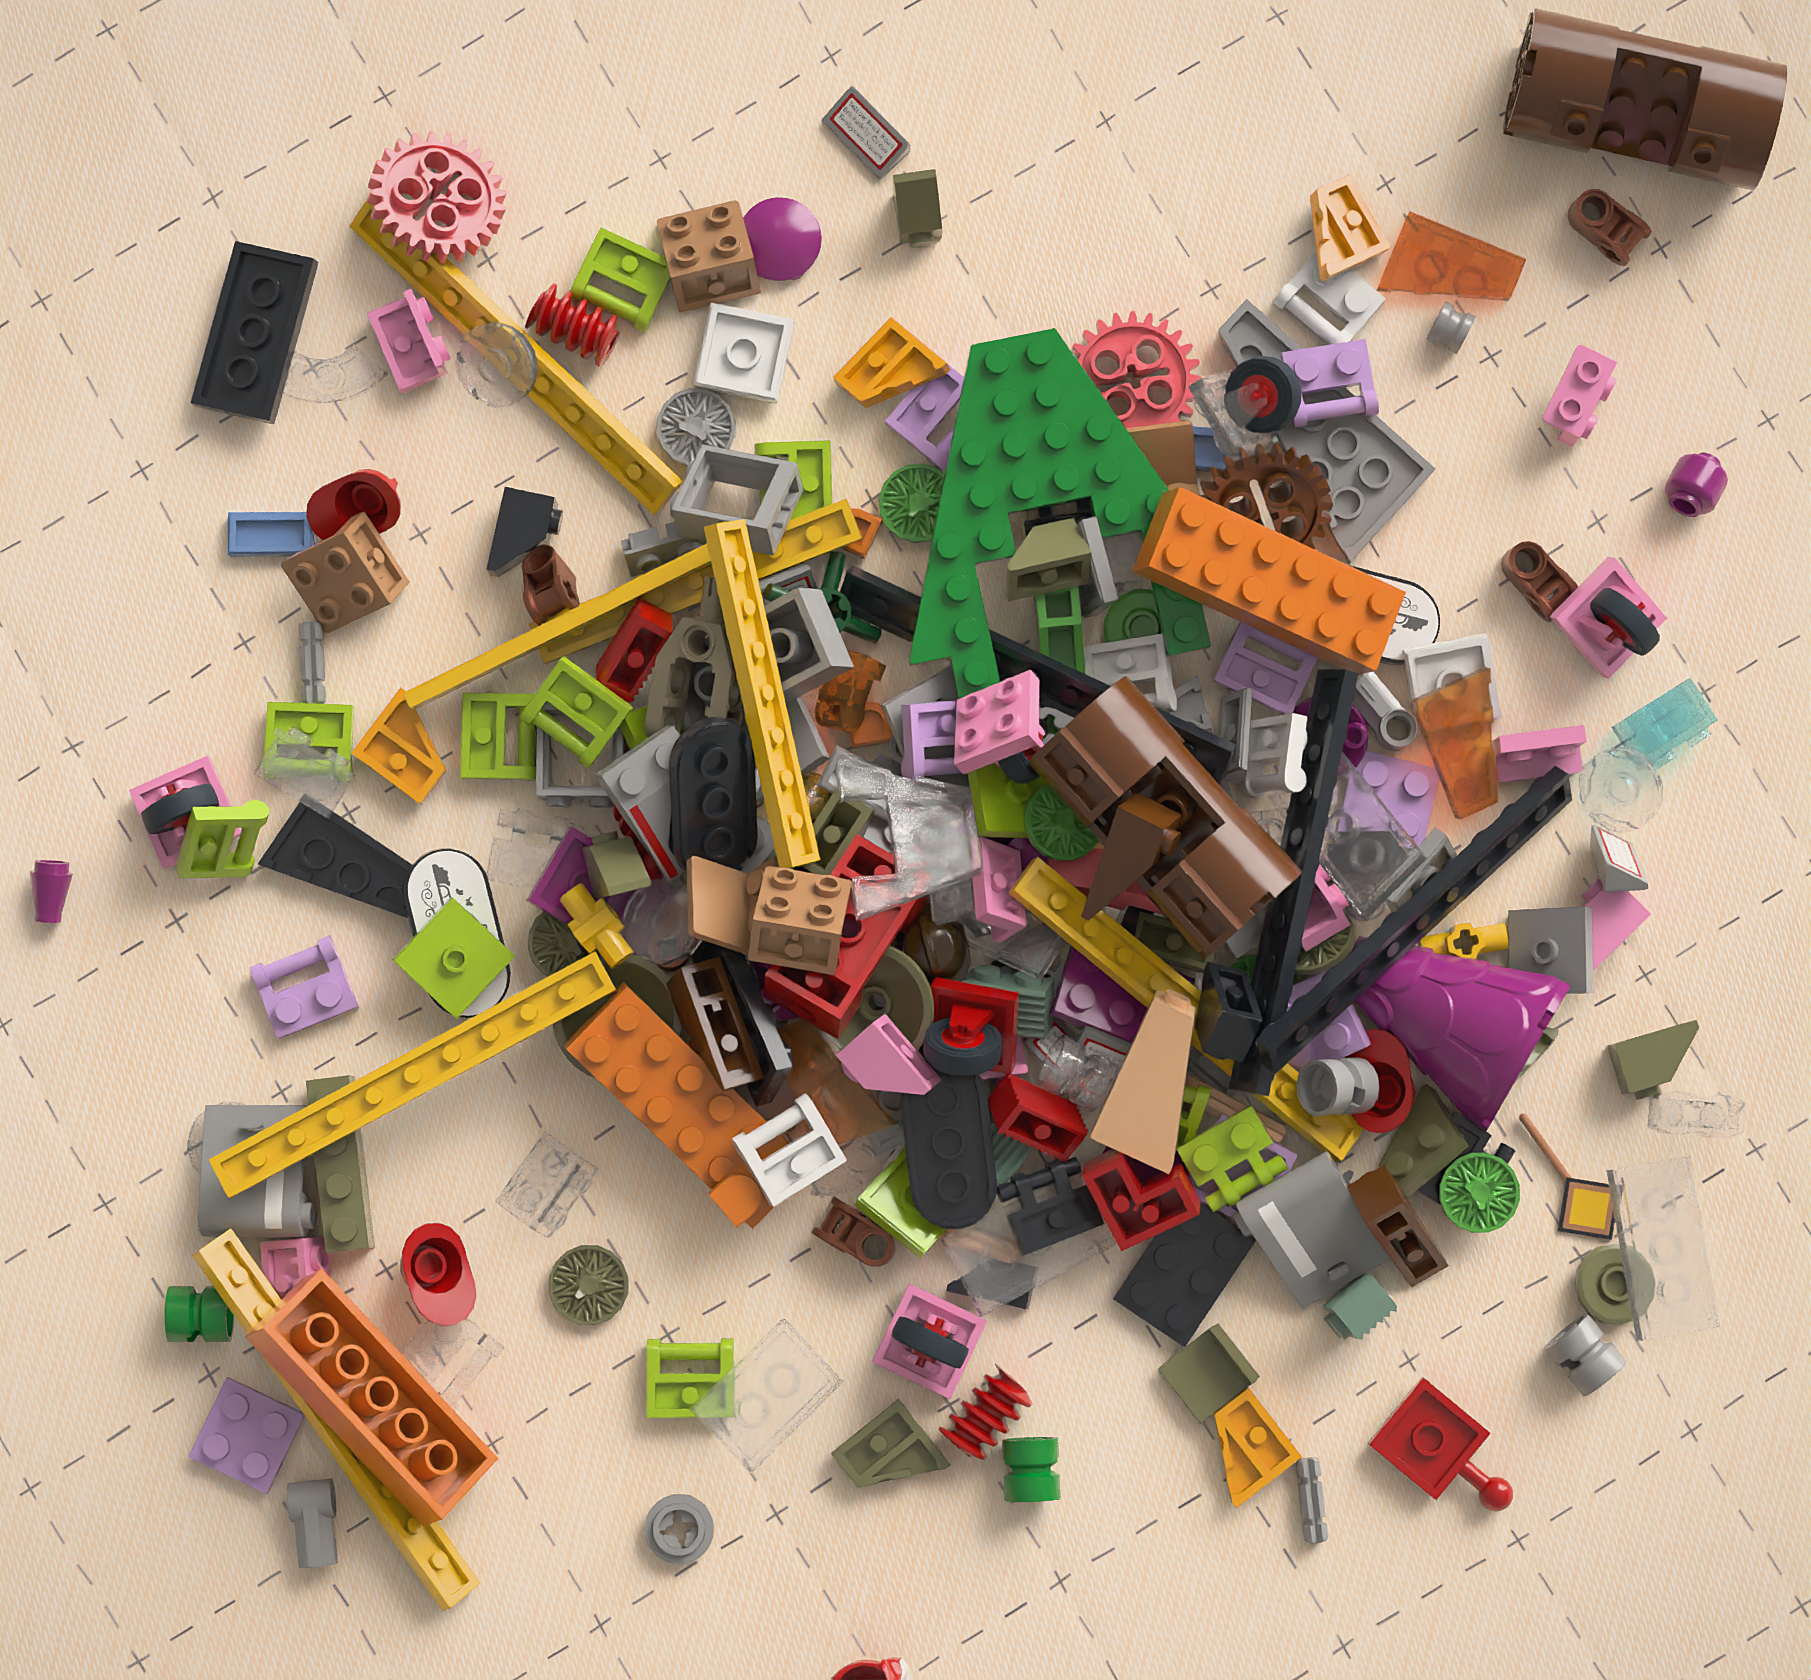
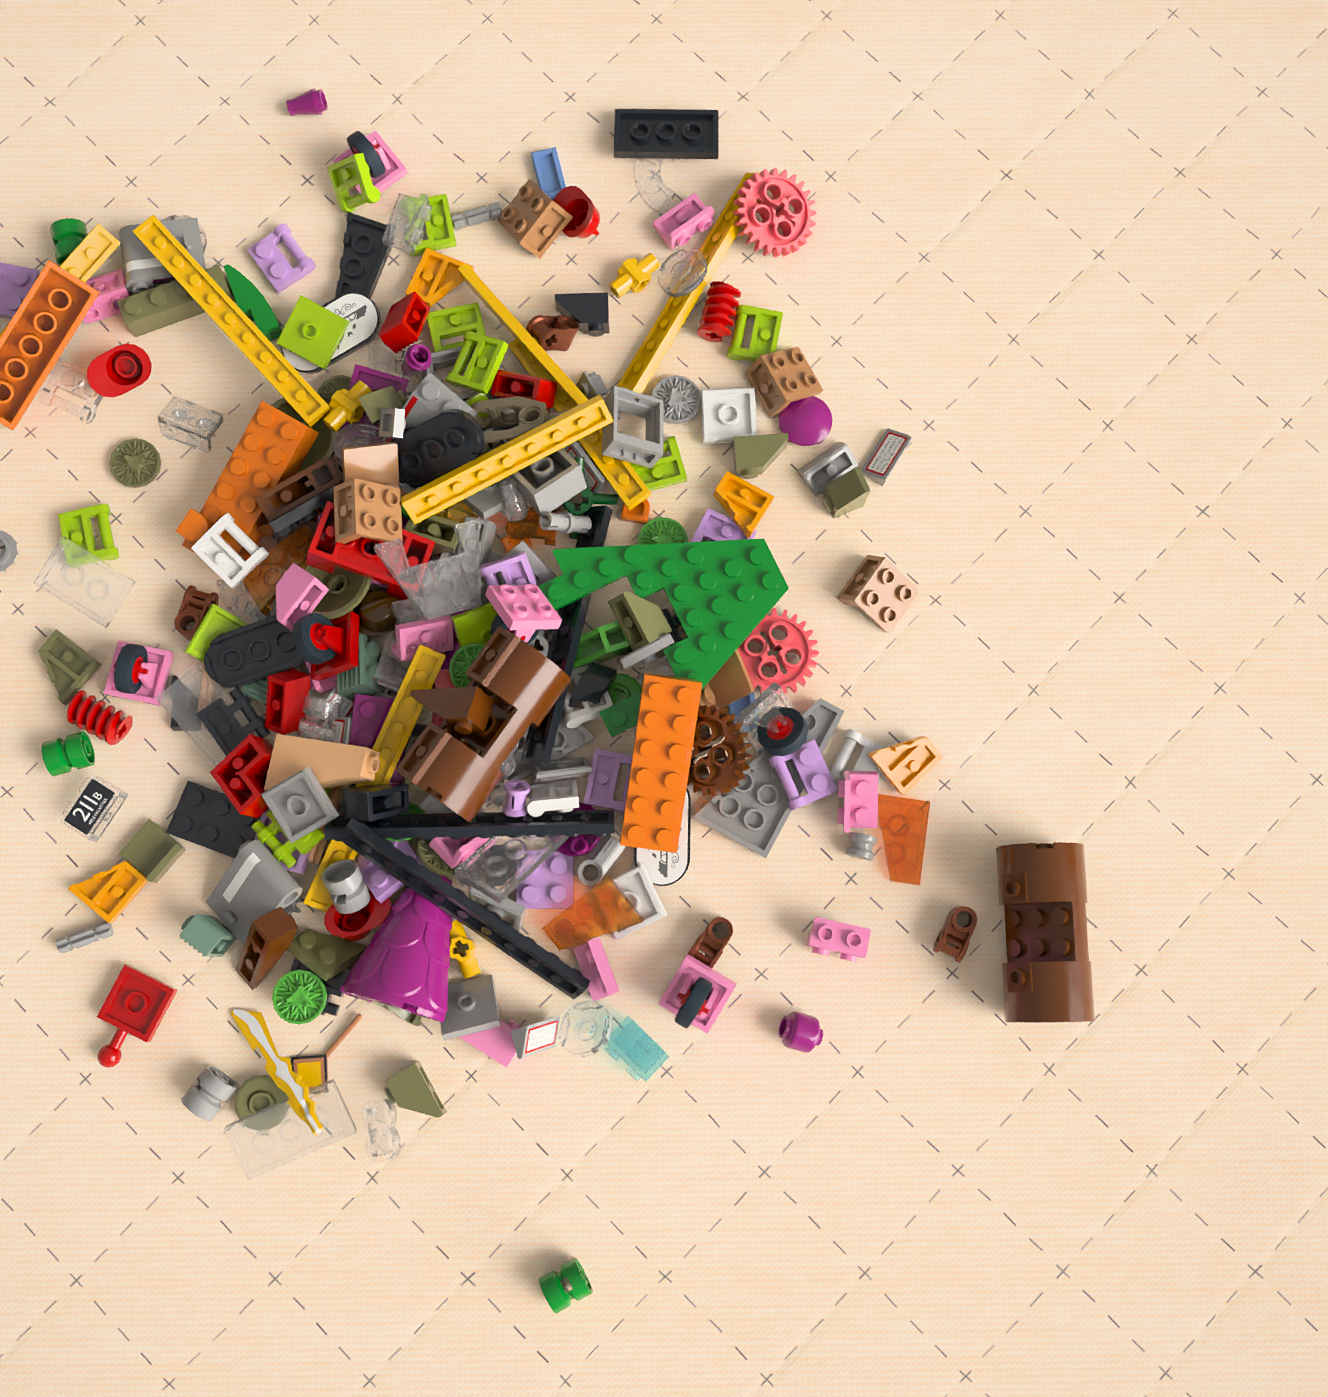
camera: 80 degrees right, 5 degrees down
(374, 1044) = (253, 304): none -> green slope
(476, 811) = (404, 322): none -> red brick
(478, 441) = (634, 275): none -> yellow axle
(546, 805) = (416, 359): none -> magenta cone
(661, 854) = (392, 423): none -> light grey plate
(816, 706) = (512, 500): none -> clear cone
(817, 327) = (757, 453): none -> olive slope
(861, 225) = (827, 467): none -> light grey slope
(865, 636) = (565, 522): none -> light grey pin
(1075, 201) = (879, 591): none -> bracket
(1121, 654) = (592, 684): none -> black slope
(1121, 1447) = (93, 807): none -> brick
(1208, 1121) = (300, 804): none -> light grey plate
(1271, 805) = (516, 798): none -> lavender bush
(1384, 311) = (859, 800): none -> bright pink bracket
(1574, 1244) = (279, 1068): none -> yellow sword

